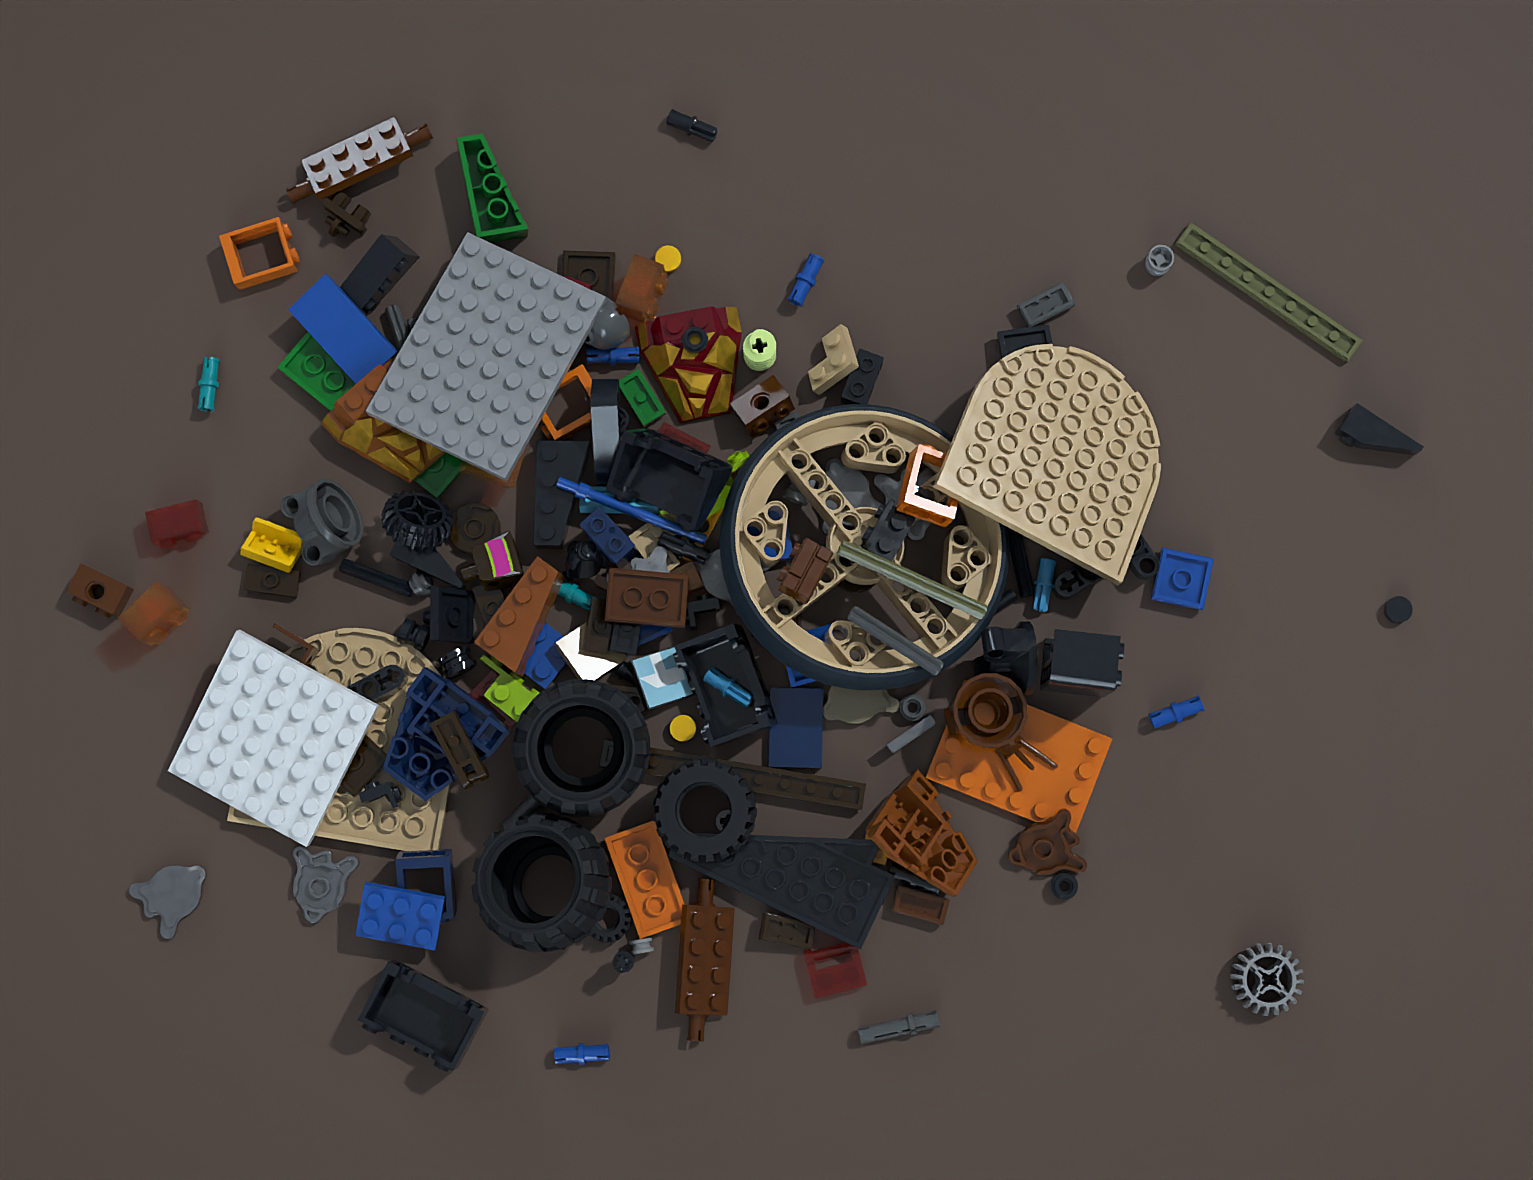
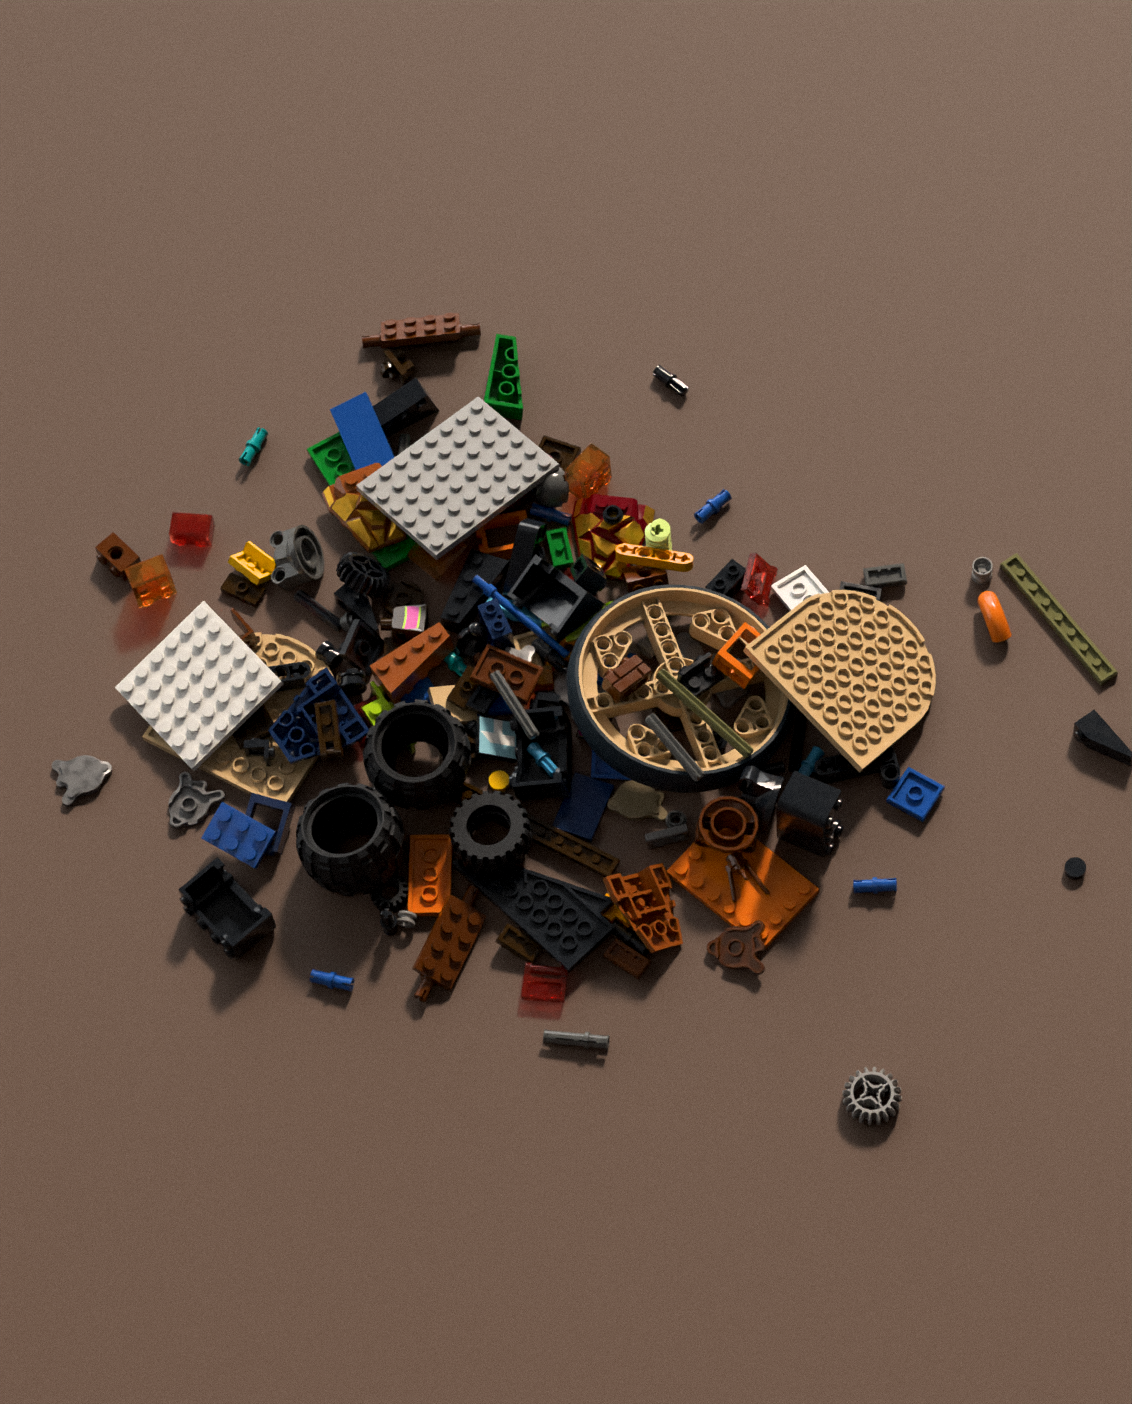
camera: 25 degrees right, 20 degrees down
(253, 232) = (334, 357): orange window -> none
(669, 257) = (618, 463): yellow tile -> none
(674, 640) = (514, 704): none -> dark grey axle
(694, 429) = (588, 574): none -> black brick
(765, 382) = (632, 554): none -> light orange beam
(839, 361) = (715, 563): tan plate -> none
(899, 362) = (754, 578): none -> clear red plate
(955, 362) = (797, 587): none -> white plate
(1073, 886) = (741, 975): black plate -> none
(1195, 317) = (994, 616): none -> orange cylinder

